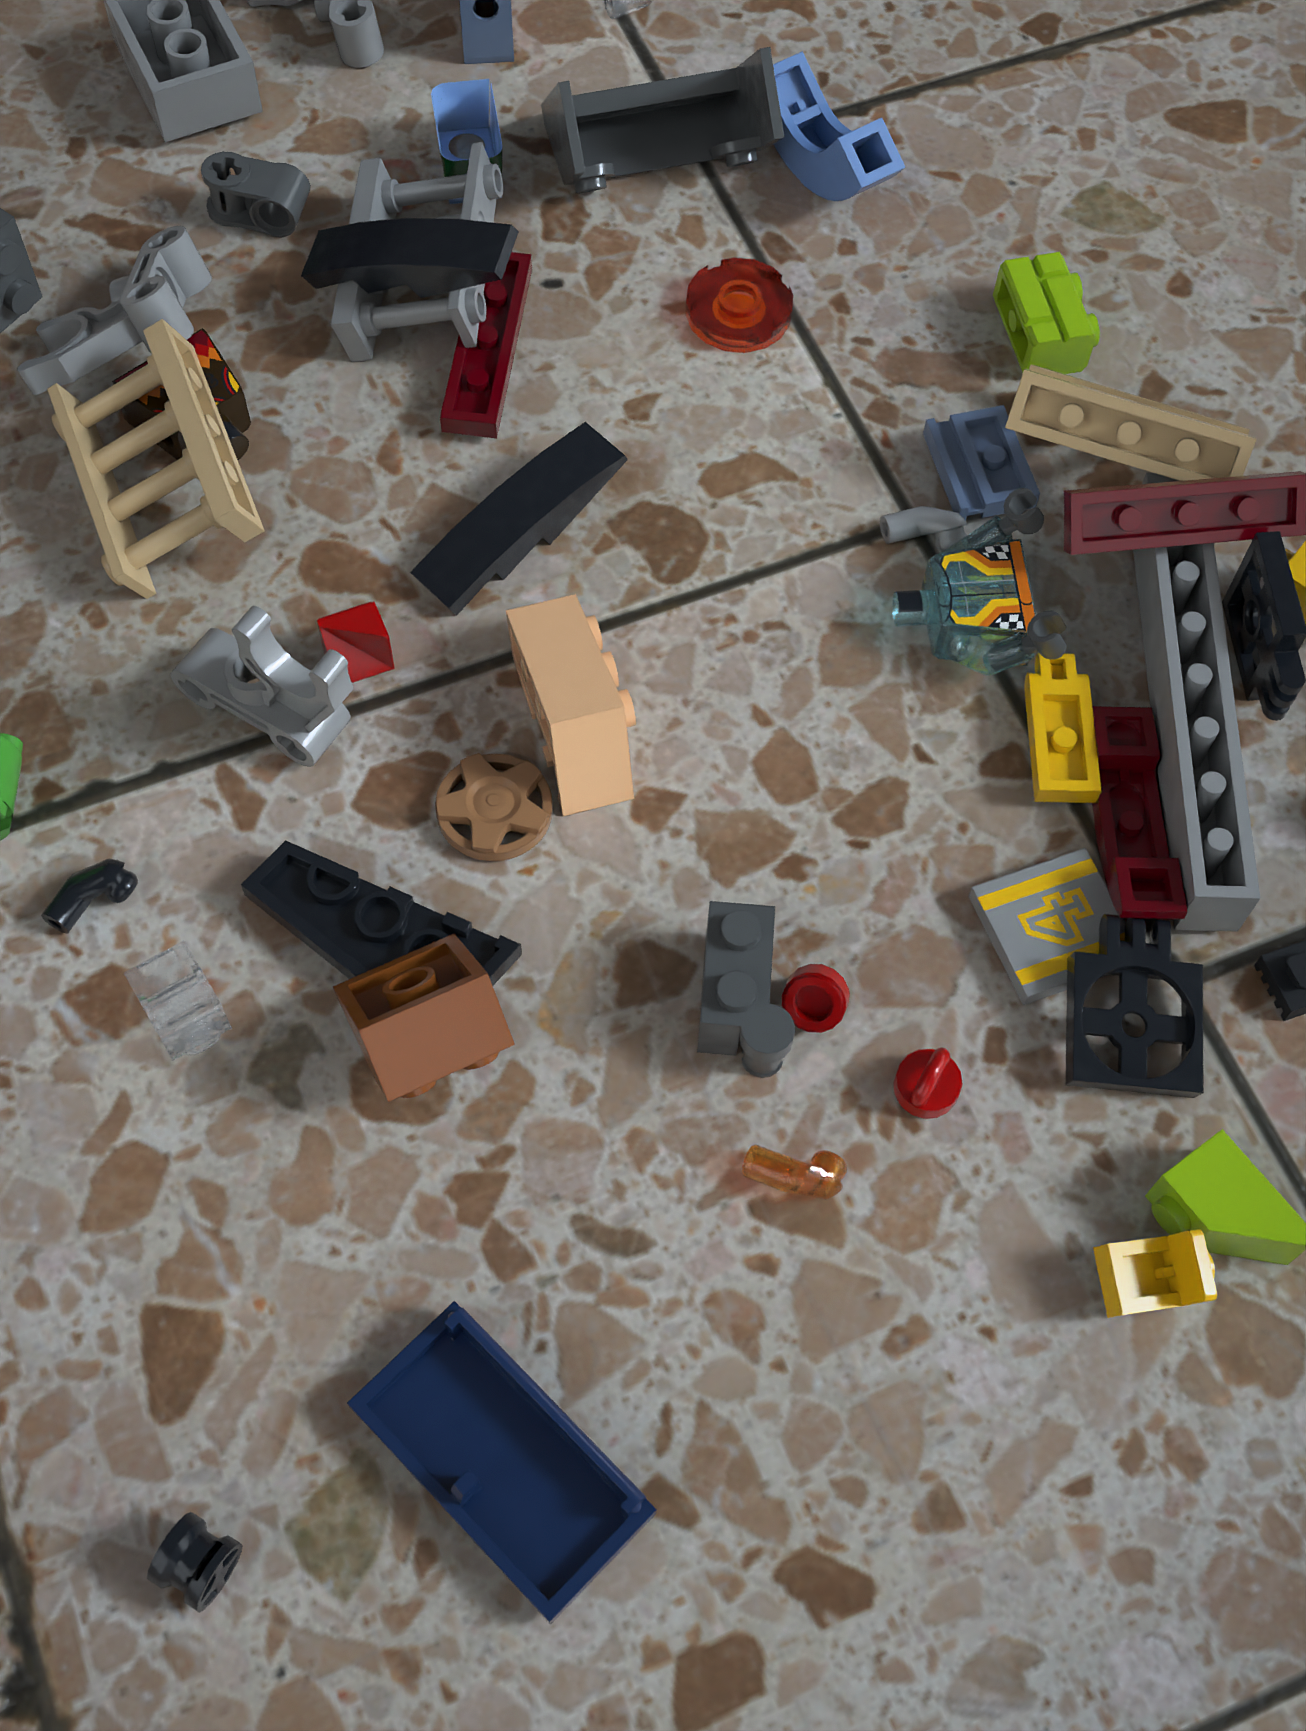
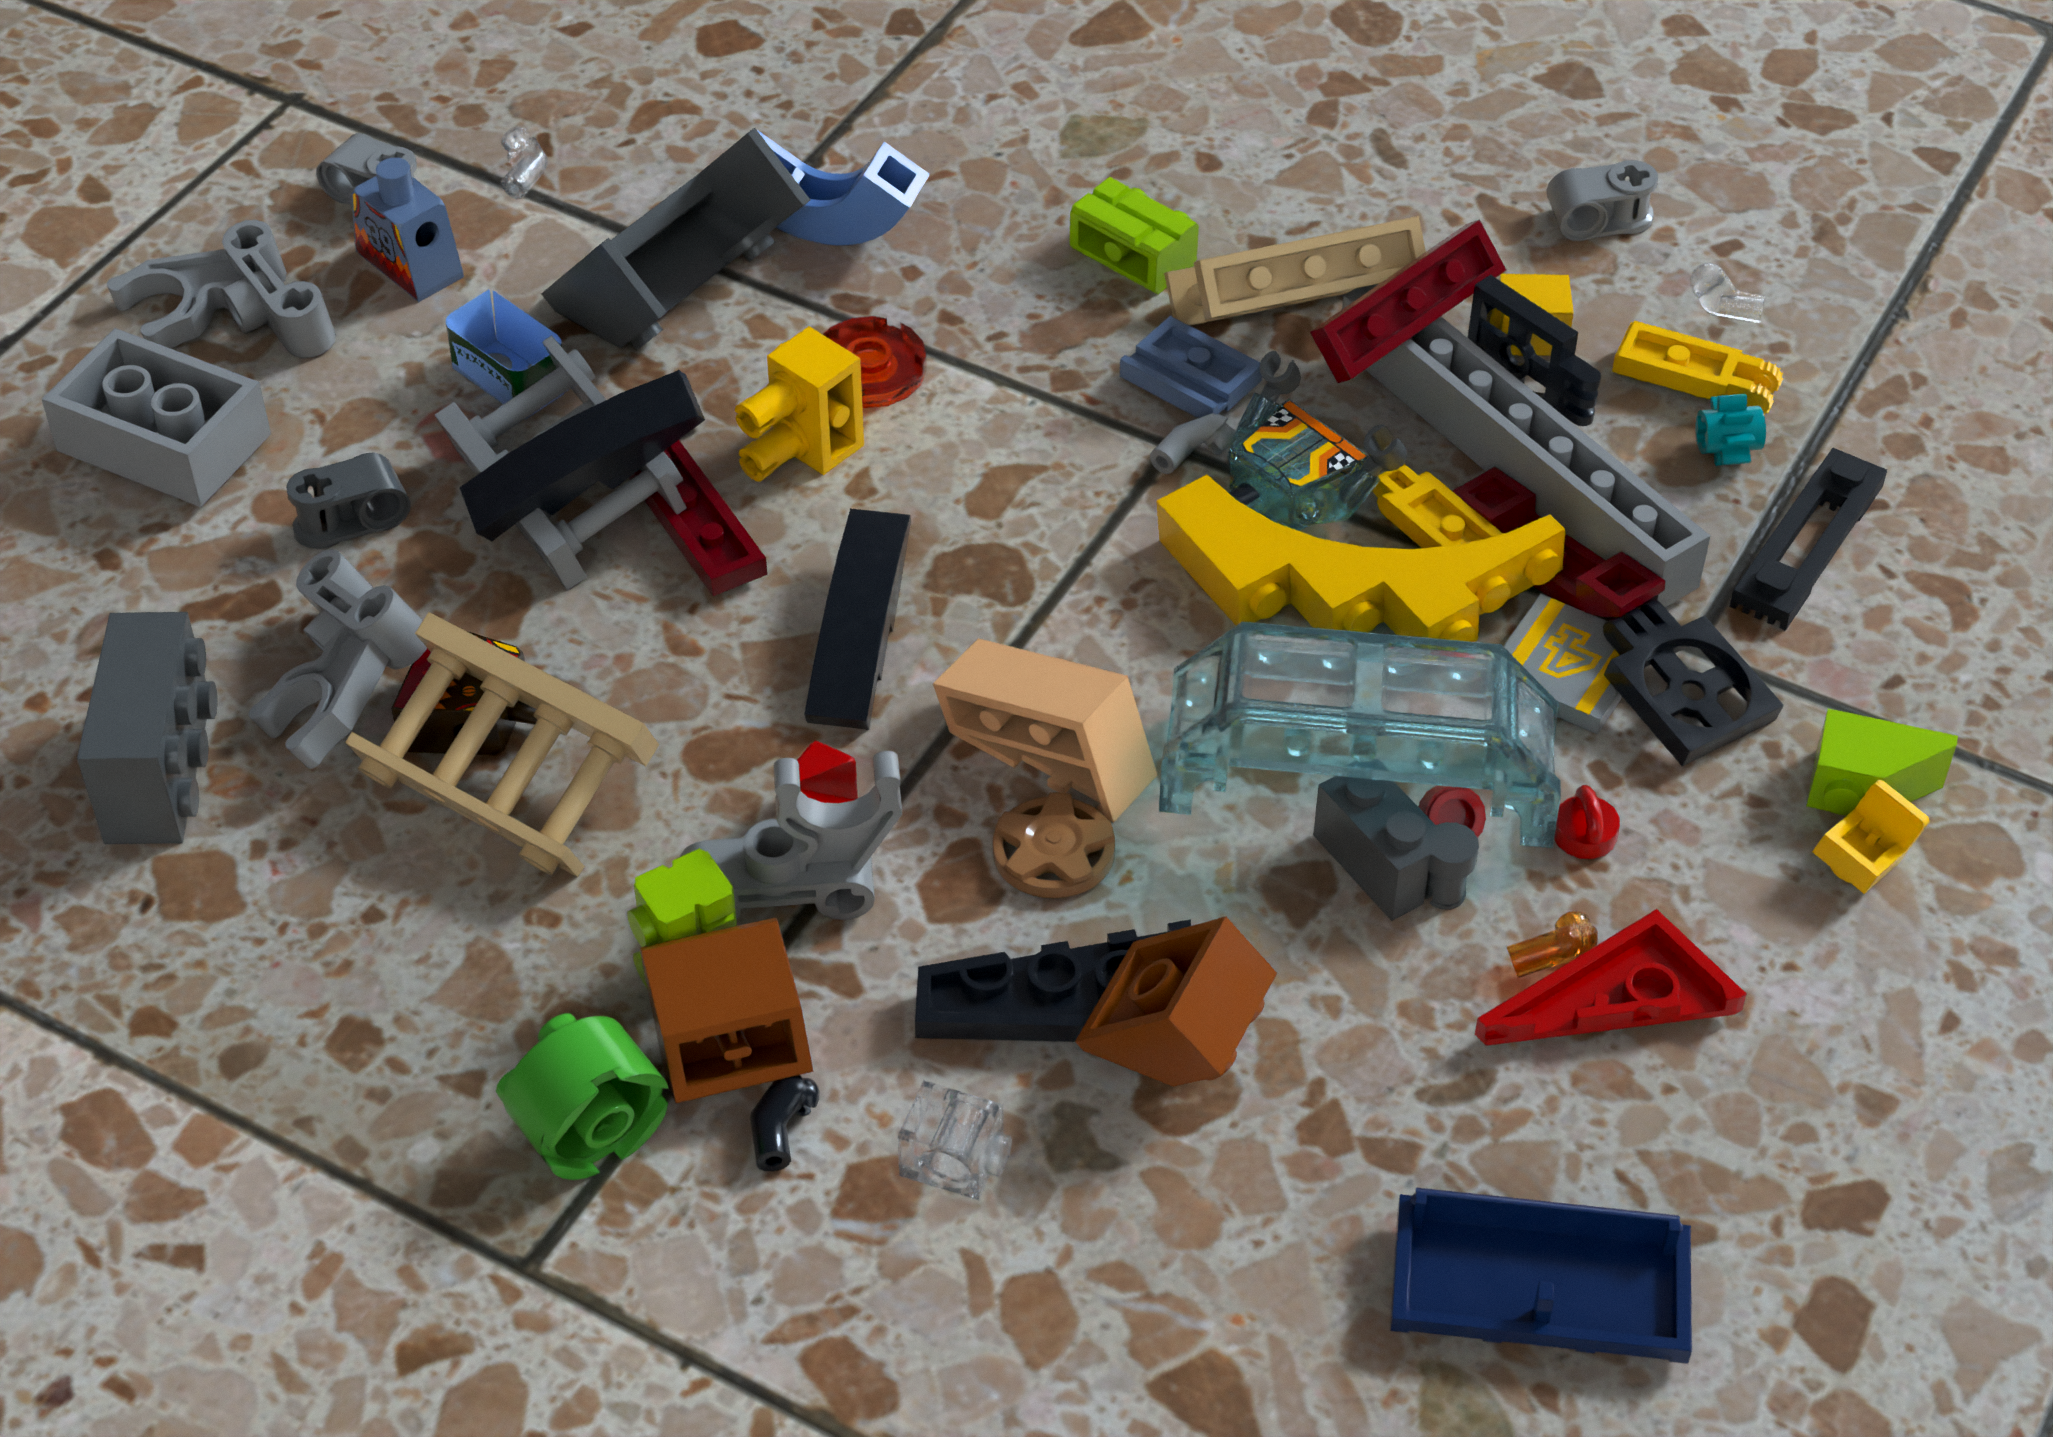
camera: 35 degrees left, 15 degrees down
(100, 783) = (726, 1010): none -> dark orange slope
(138, 694) = (680, 902): none -> lime brick
(638, 310) = (808, 404): none -> yellow brick
(807, 877) = (1366, 712): none -> clear light blue windscreen
(824, 1249) = (1627, 981): none -> red wing
(921, 743) = (1431, 592): none -> yellow arch

